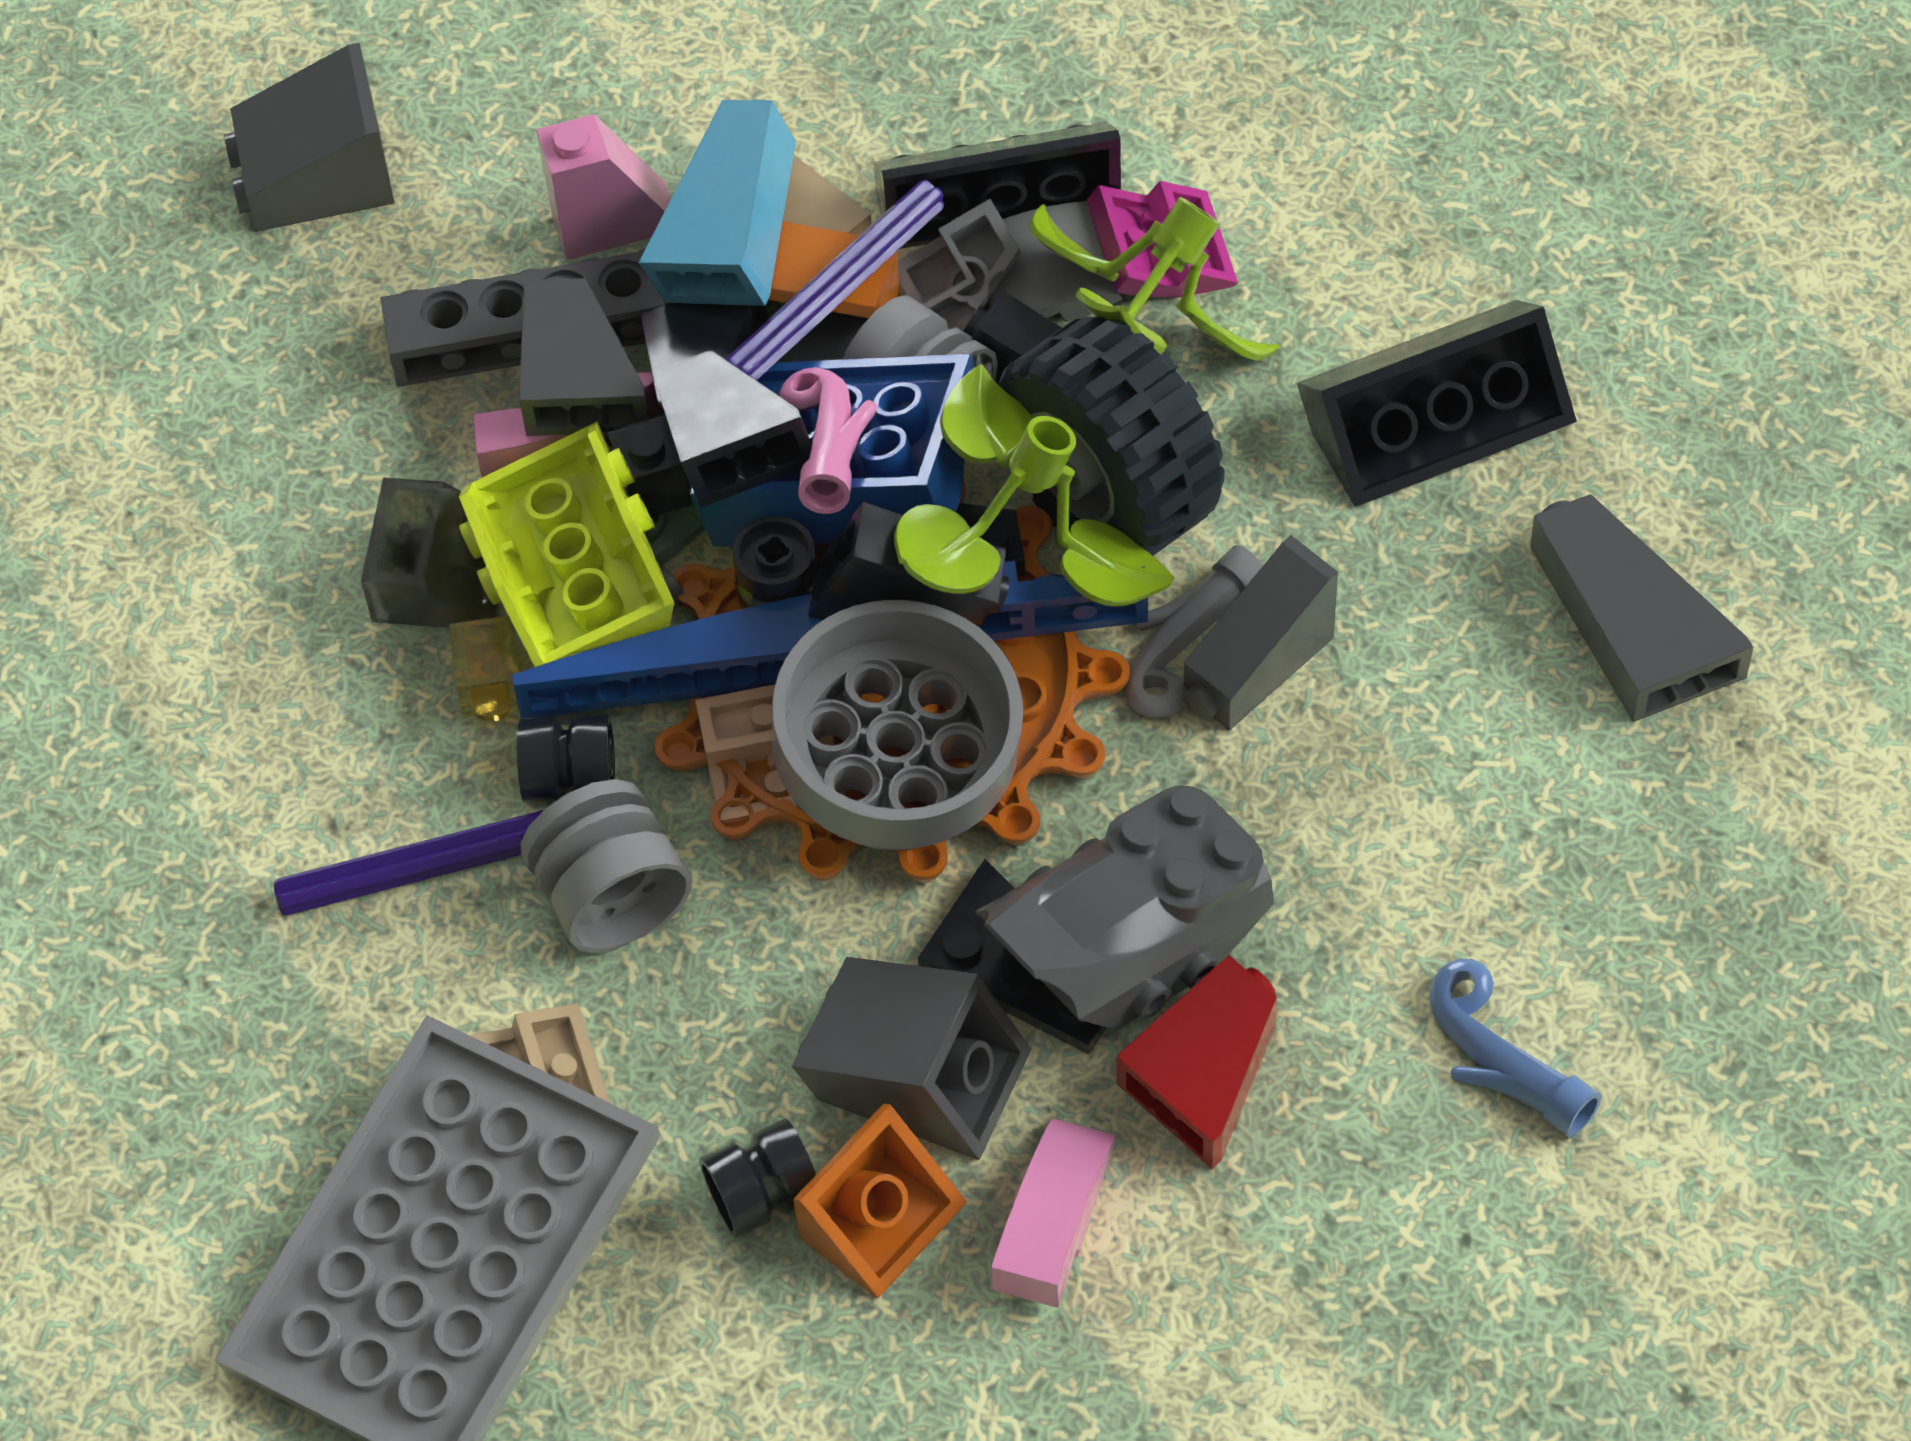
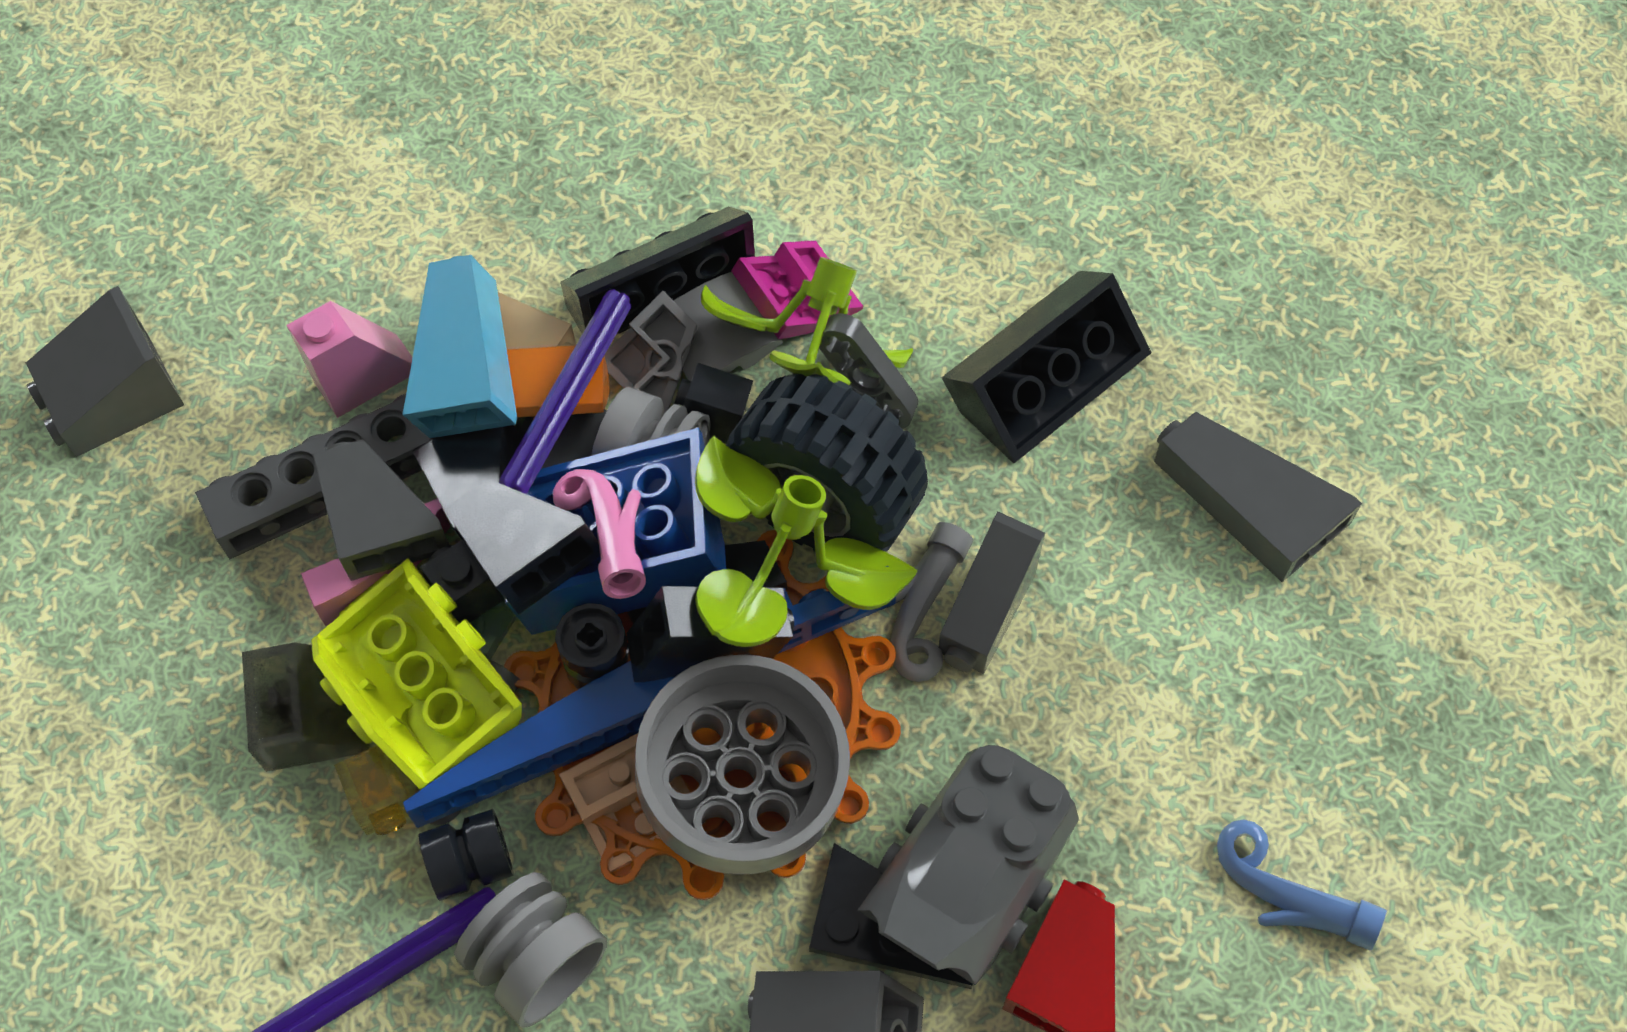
camera: 20 degrees left, 5 degrees up
(1190, 315) = (851, 346): none -> dark grey beam

